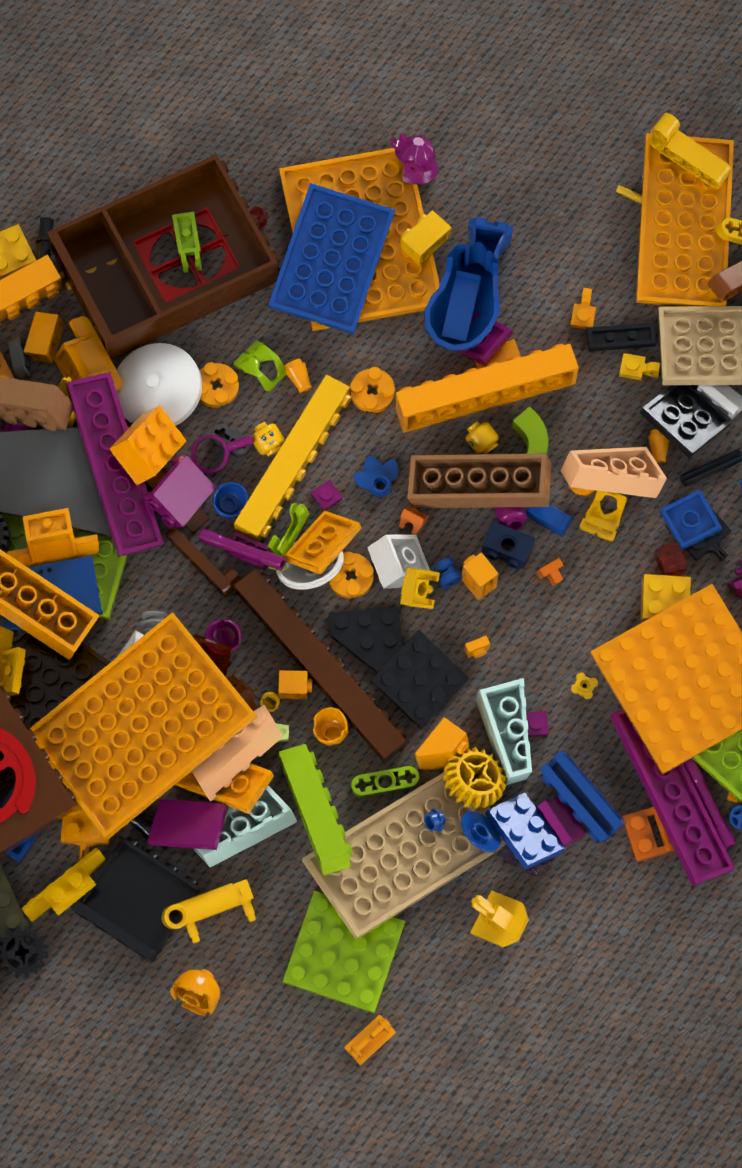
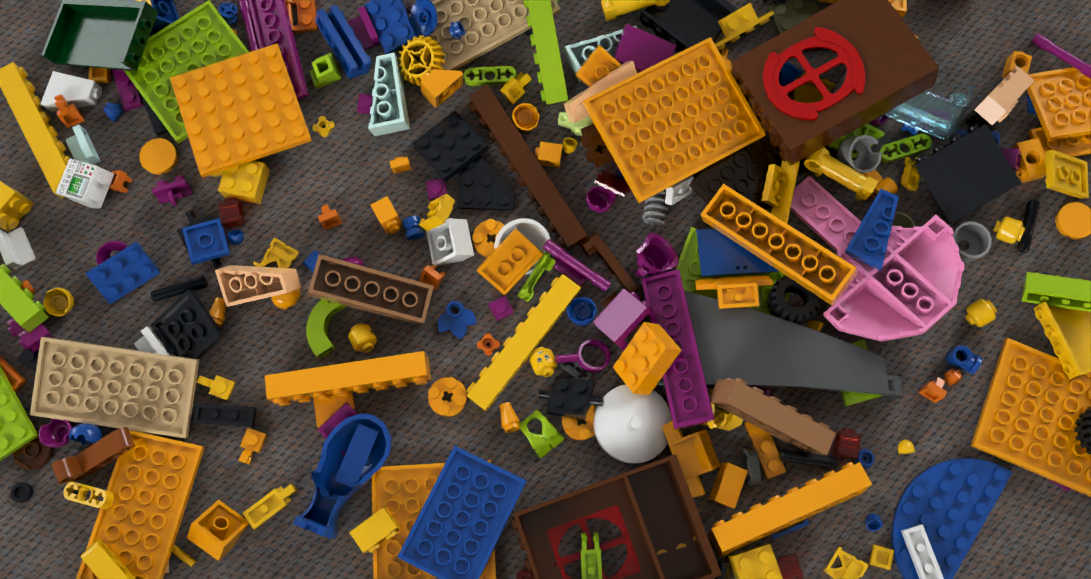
camera: 170 degrees left, 5 degrees up
(148, 572) = (655, 256): none -> magenta helmet
(230, 402) = (571, 397): none -> black plate
(333, 447) = (488, 349): none -> orange plate
(349, 766) = (514, 87): none -> yellow plate
(428, 625) = (436, 188): none -> magenta plate
(499, 535) = (367, 251): dark blue brick -> none
(548, 253) = (269, 505): none -> yellow hinge
(597, 221) = (217, 530): none -> light orange slope
(597, 757) = (325, 71): none -> lime brick
(659, 535) = (235, 237): none -> blue hinge

